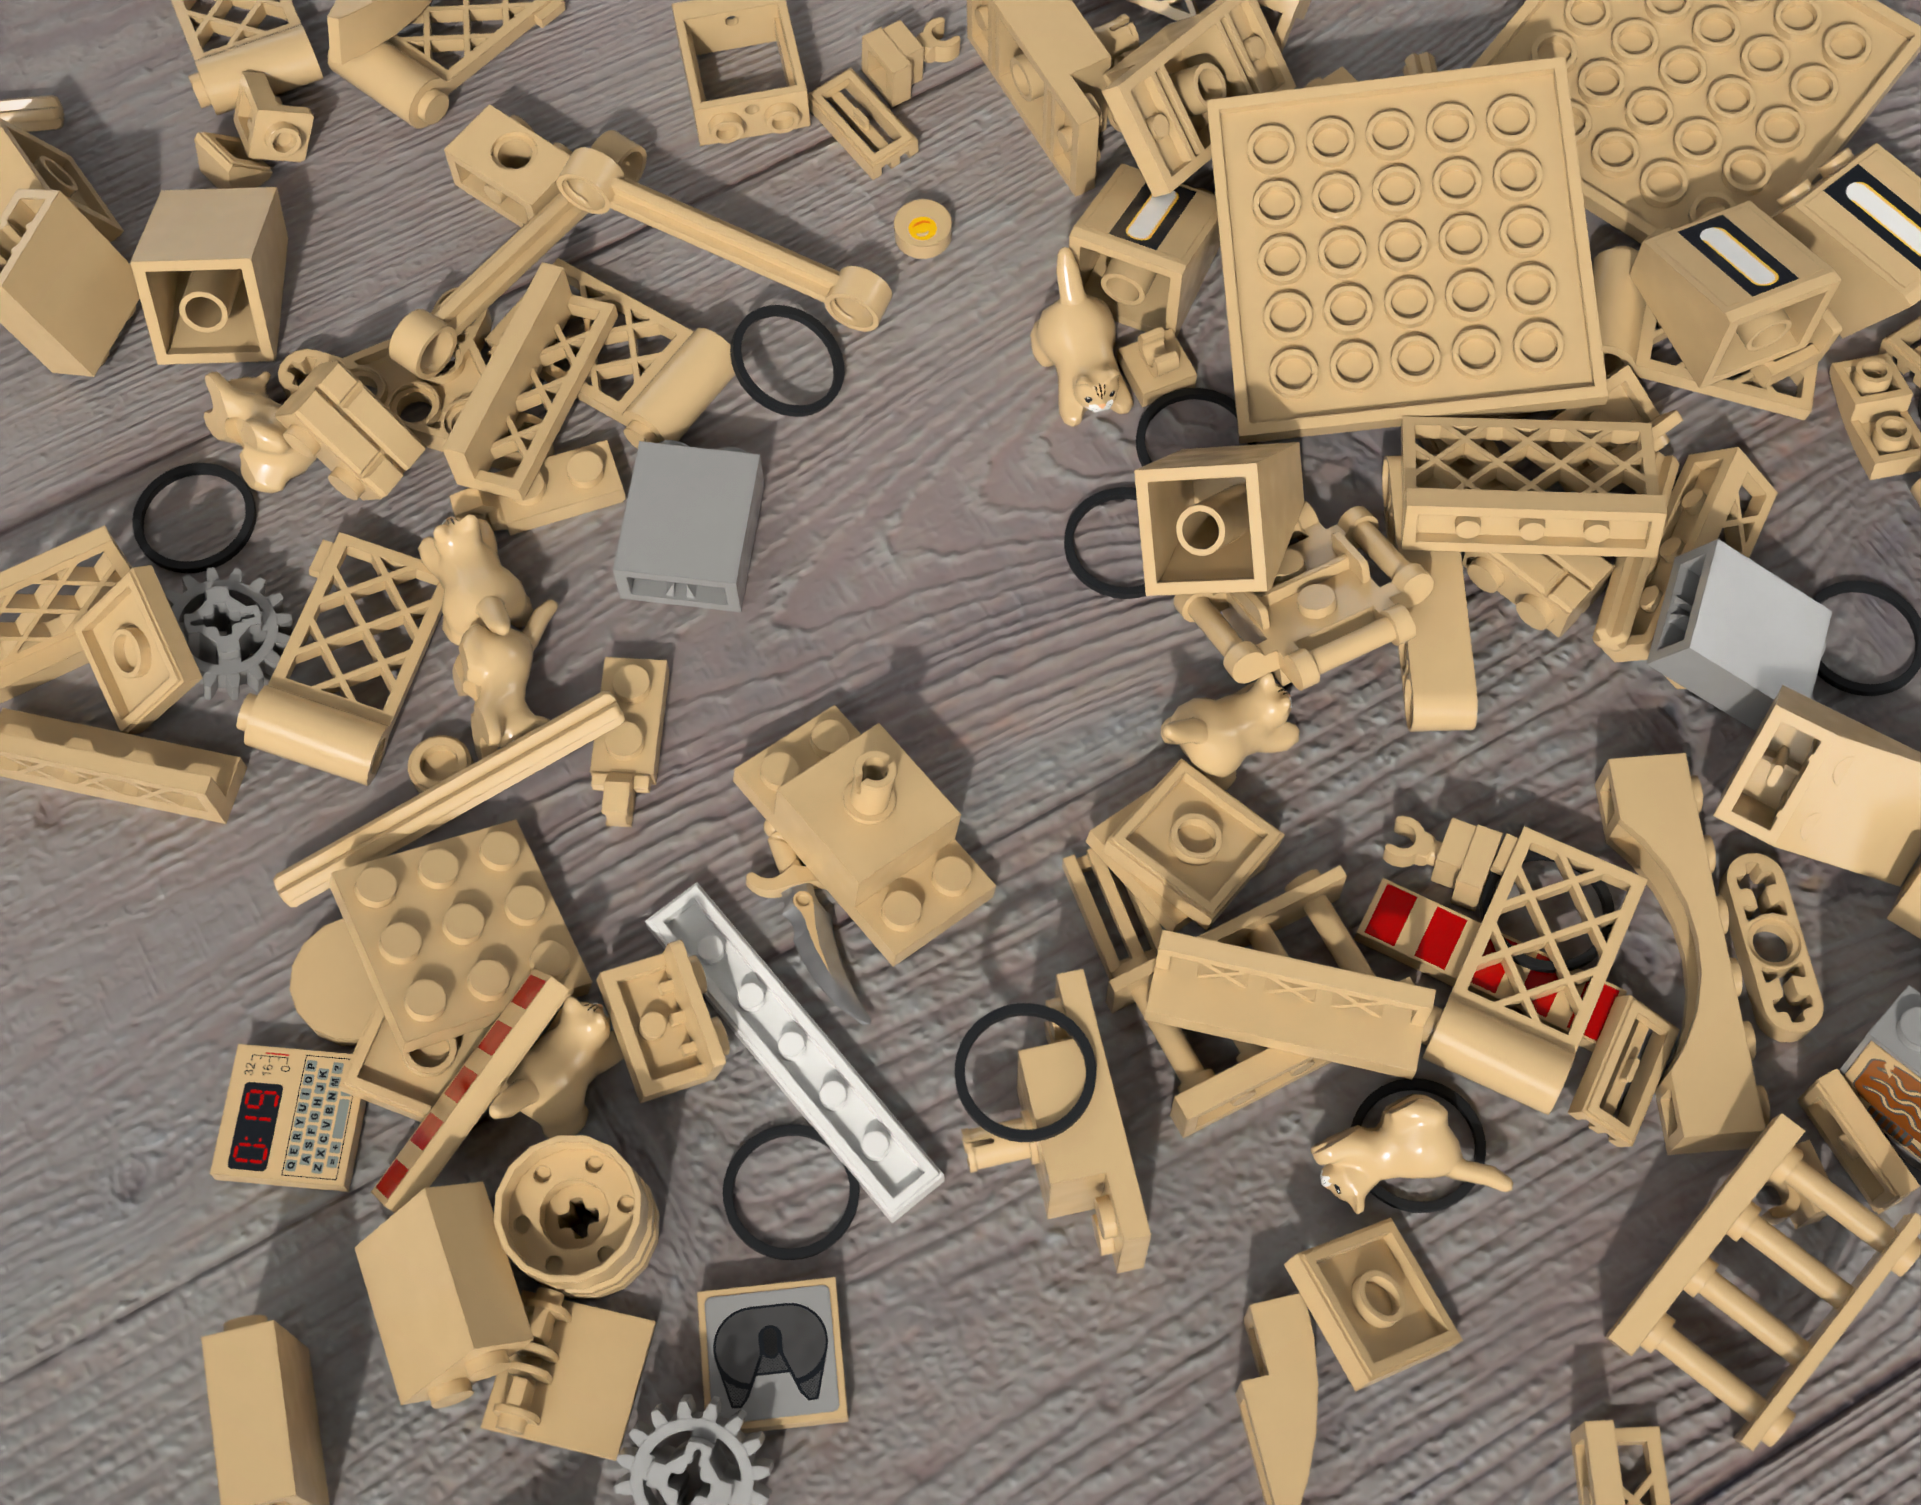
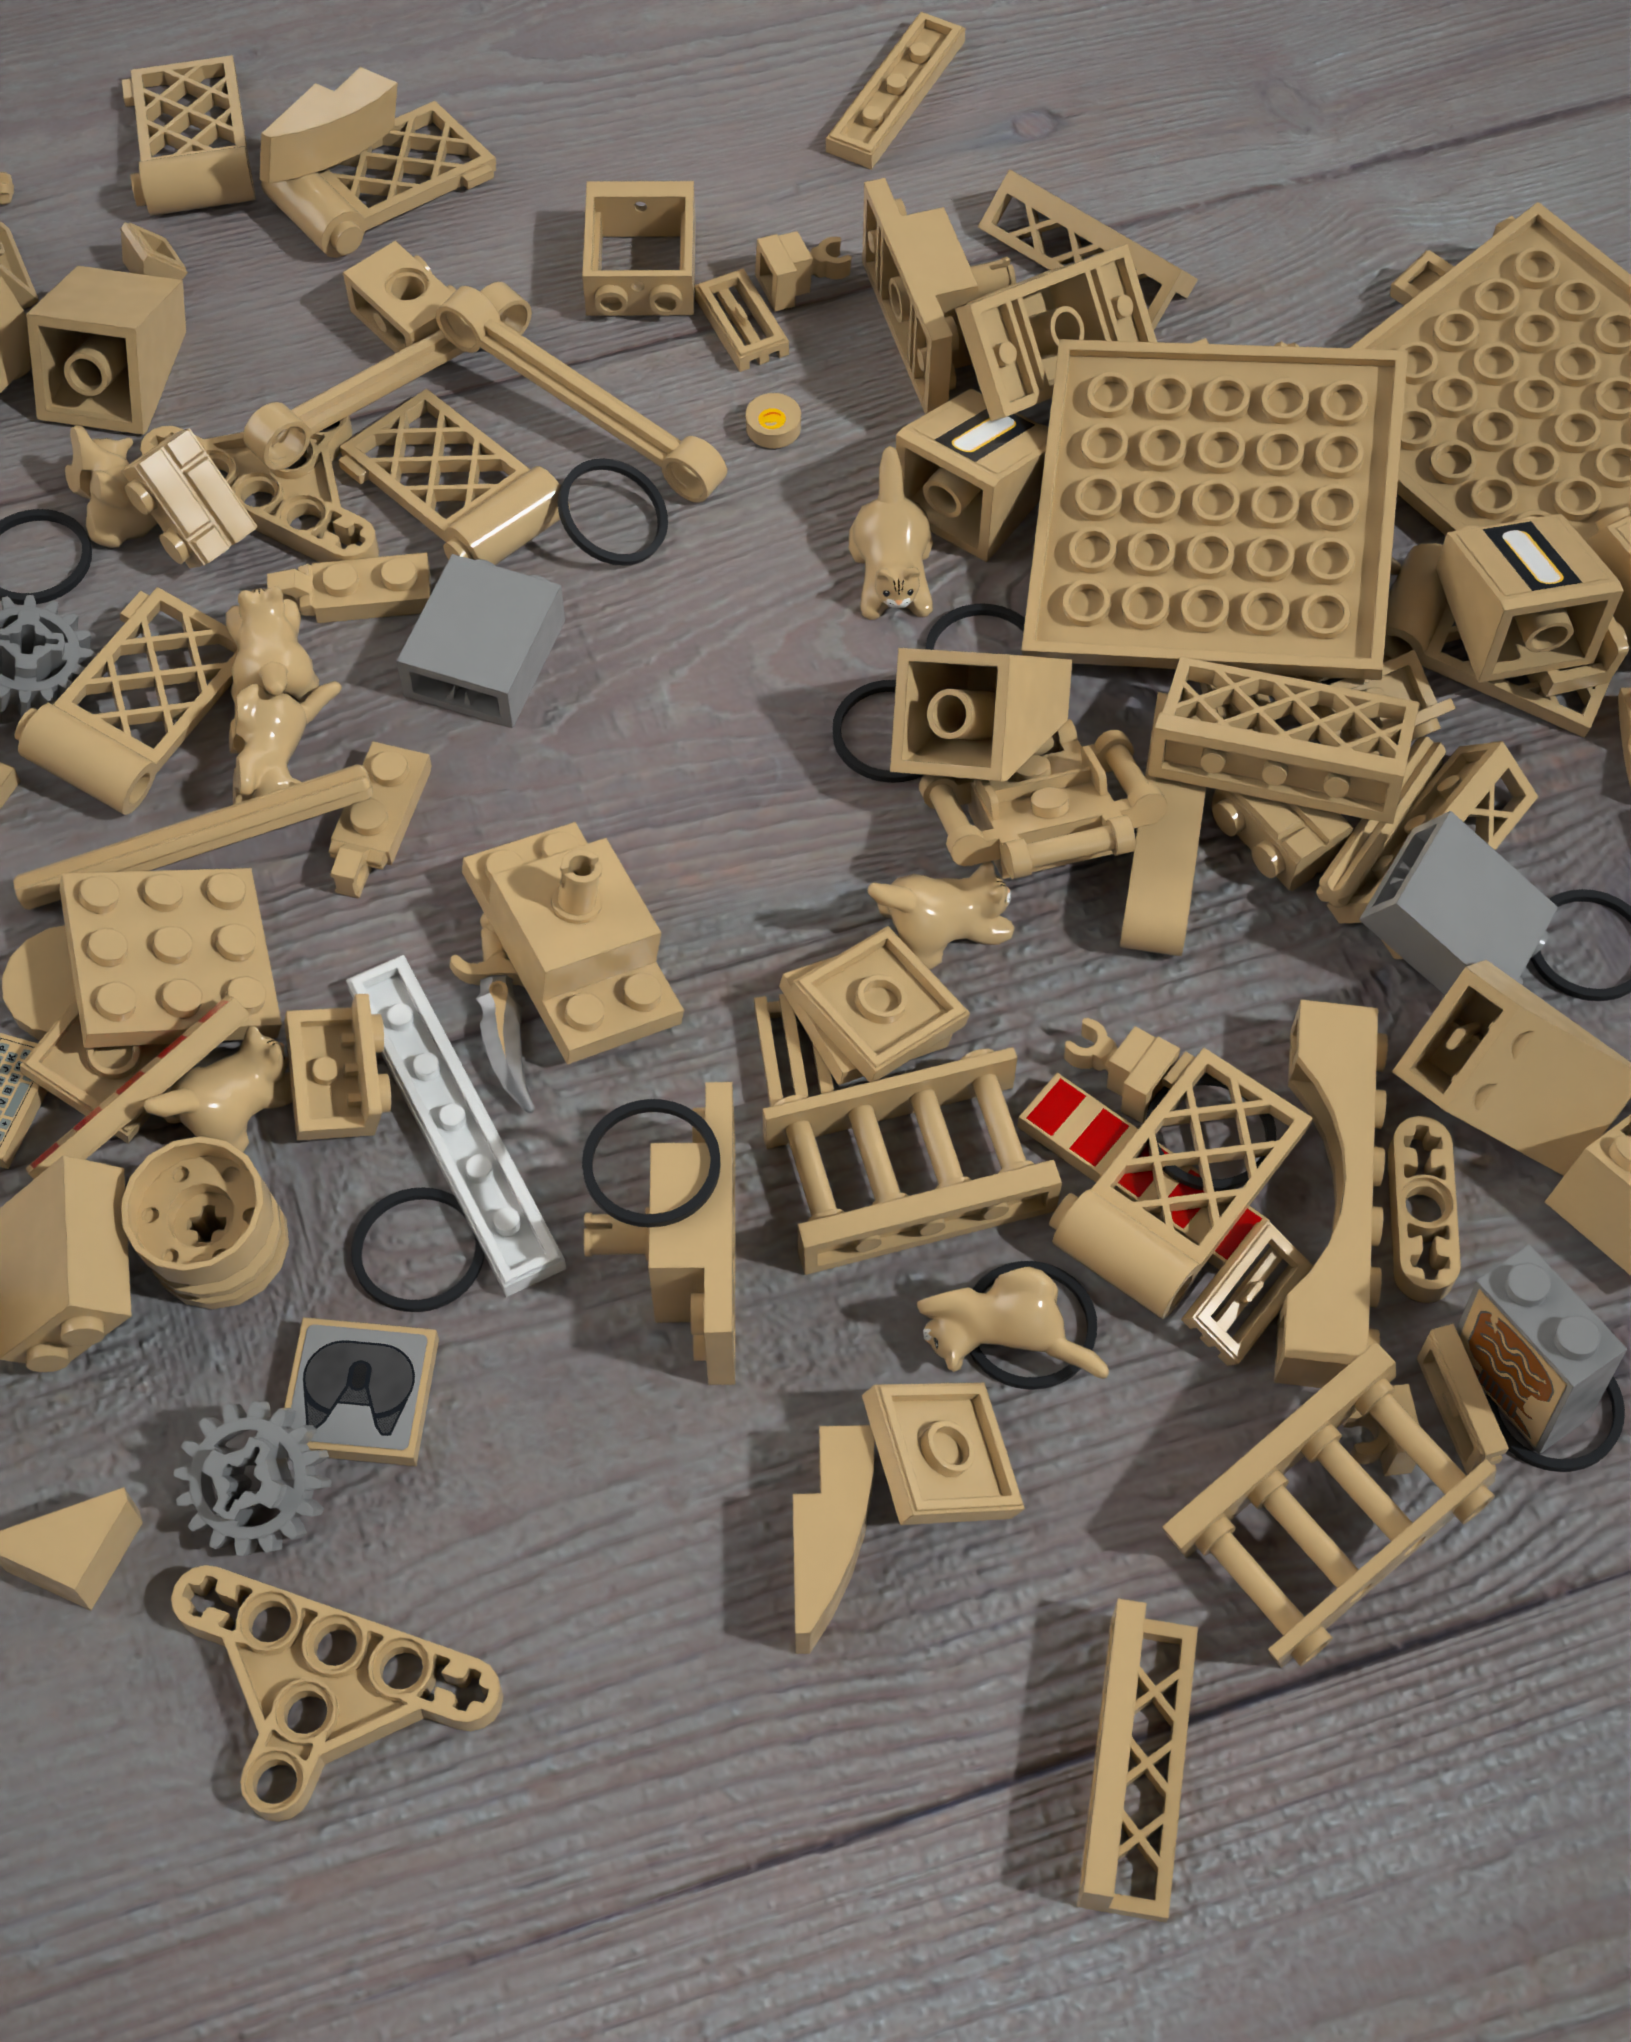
camera: 10 degrees right, 5 degrees down
(266, 125) = (192, 229): tan bracket -> none
(437, 760) = (192, 801): tan tile -> none
(508, 384) = (349, 484): tan fence -> none
(574, 1378) = (164, 1368): tan hinge -> none
(1156, 365) = (962, 576): tan tile -> none
(1288, 1004) = (926, 1156): tan fence -> none

